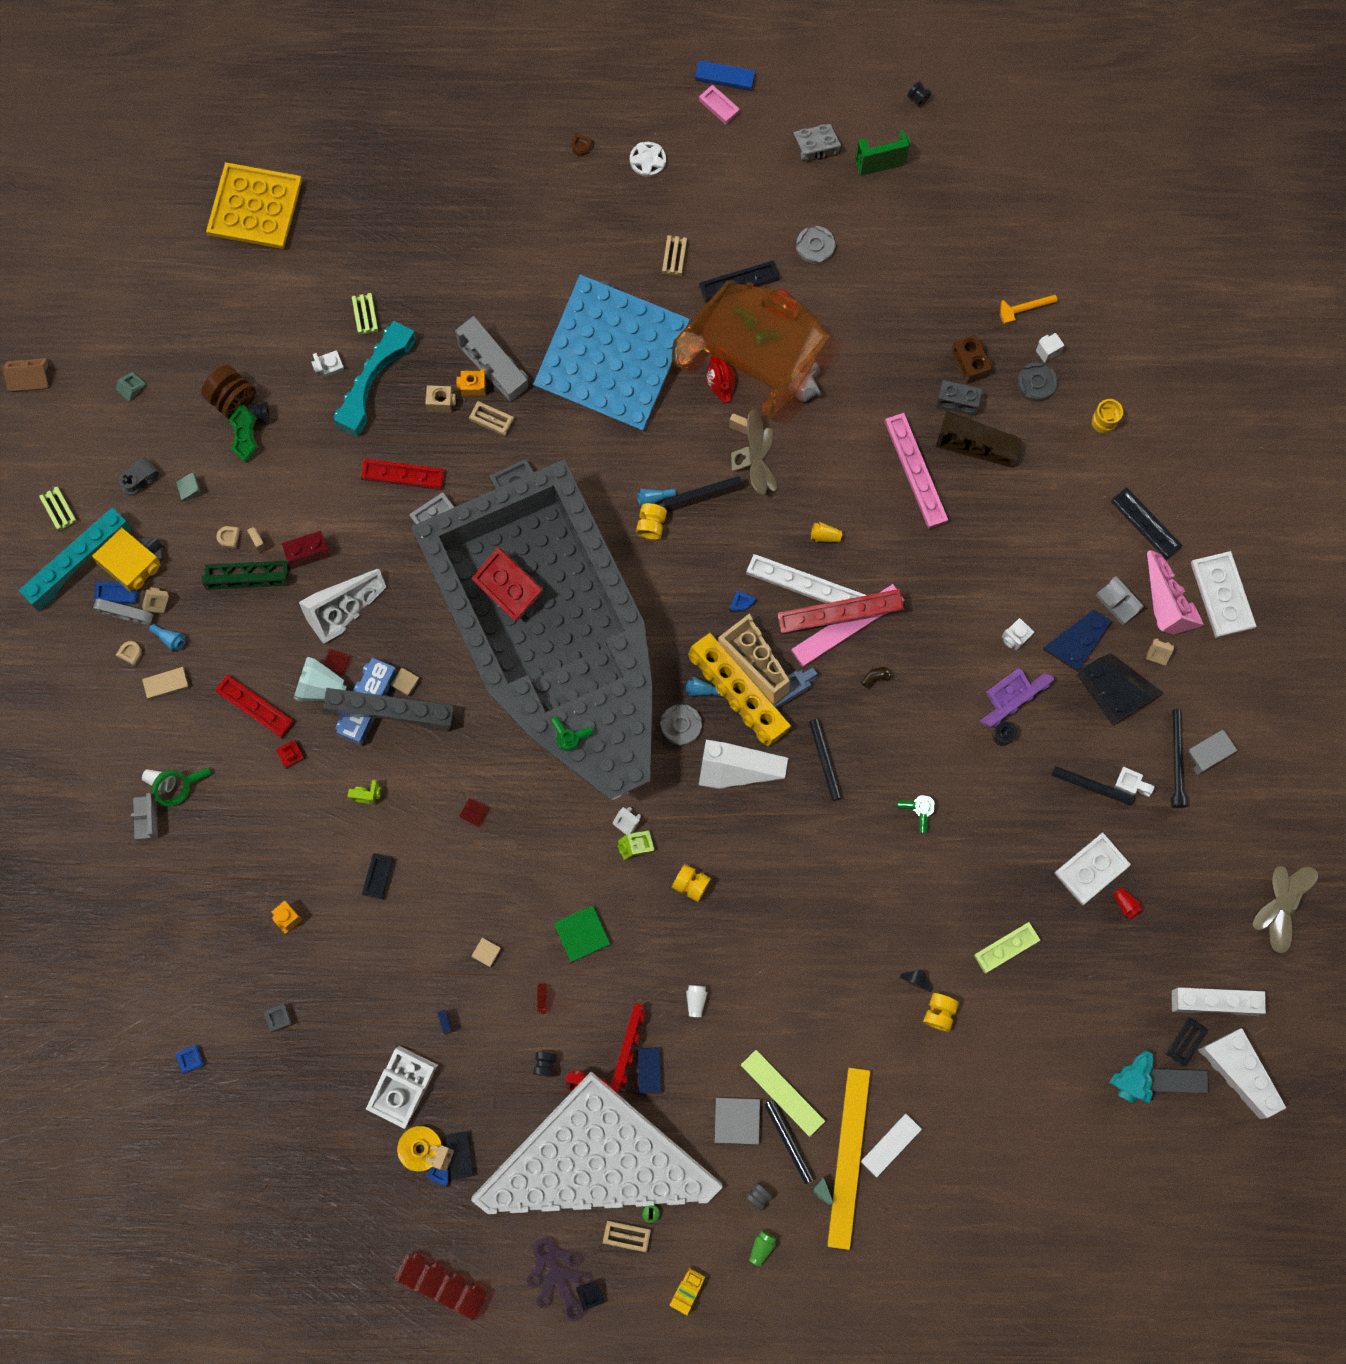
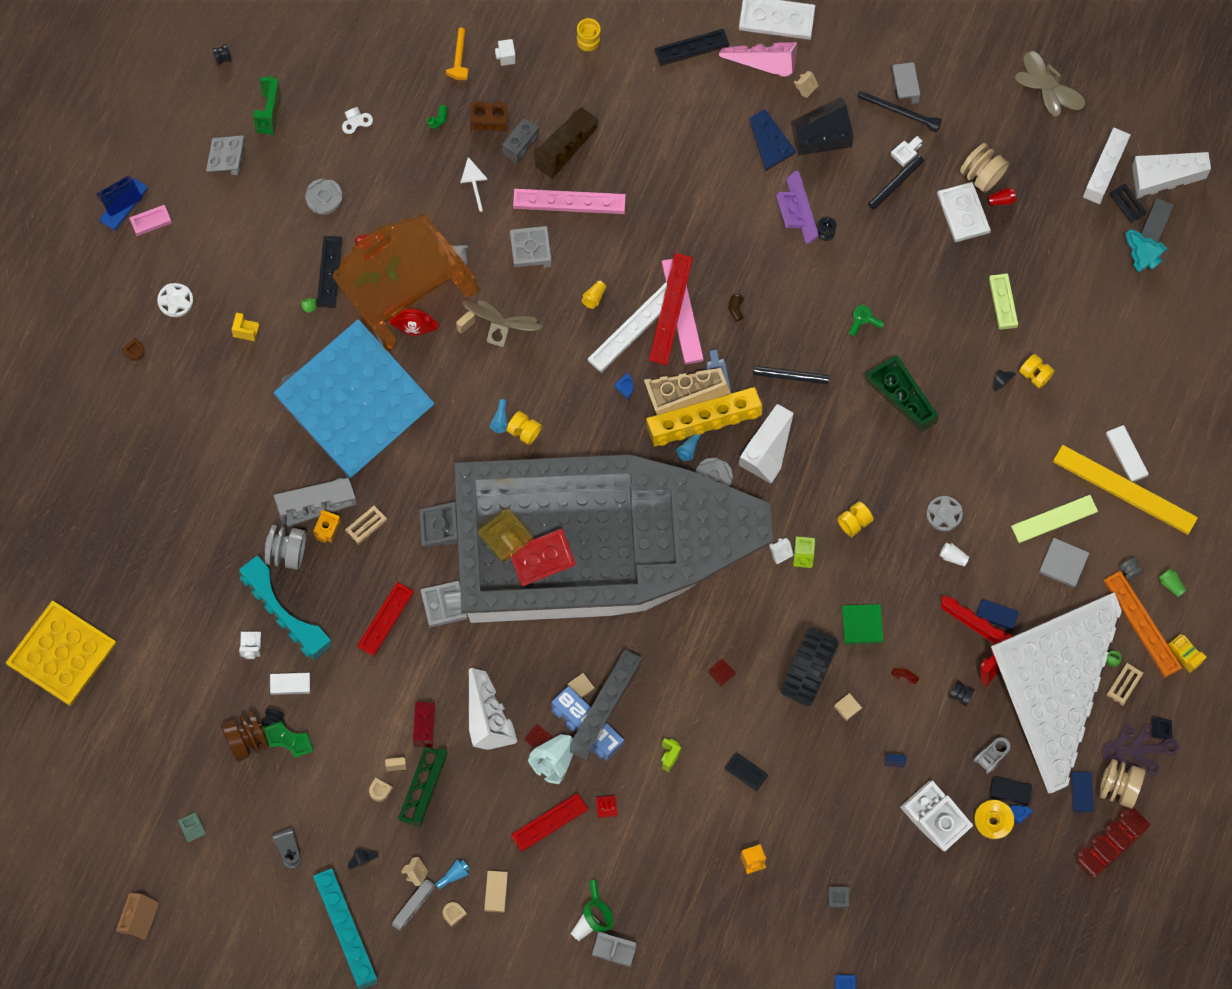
camera: 70 degrees left, 5 degrees down
(50, 495) = (268, 933): yellowish green tile -> none
(114, 593) = (390, 906): blue tile -> none
(127, 560) = (367, 883): yellow brick -> none
(188, 487) = (316, 807): sand green slope -> none
(303, 414) = (290, 683): none -> white tile
(362, 299) = (197, 599): yellowish green tile -> none
(432, 352) = (286, 547): none -> light grey wheel
(434, 393) = (326, 567): tan brick -> none
(442, 1158) = (1010, 801): tan tile -> none
(486, 1119) = (990, 757): none -> light grey piece
(487, 1232) = (1082, 791): none -> dark blue tile
(500, 893) = (809, 666): none -> black tyre
(502, 533) = (505, 535): none -> clear yellow plate
(506, 1271) = (1122, 783): none -> tan wheel
(568, 739) = (710, 551): green piece -> none
(645, 229) = (243, 328): none -> yellow panel
(676, 241) = (296, 315): tan tile -> none
(694, 275) = (309, 305): none -> bright green hinge
(702, 494) = (516, 376): black tile -> none
(702, 1232) = (1143, 625): none -> orange tile
(727, 65) = (119, 196): none -> clear blue panel
(739, 974) = (944, 513): none -> light grey wheel
(789, 1142) = (1095, 529): black piece -> none
(822, 1192) = (1145, 518): sand green slope -> none
(848, 452) = (530, 247): none -> light grey piece
(853, 879) = (900, 390): none -> dark green wedge
(903, 369) = (473, 174): none -> white piece
(909, 240) = (355, 119): none -> white piece
(946, 316) = (439, 120): none -> green arm
(1017, 634) = (746, 184): white bracket -> none
(1037, 382) = (530, 76): dark grey tile -> none
(1119, 601) = (750, 95): light grey panel -> none
(1149, 869) = (982, 166): none -> tan wheel

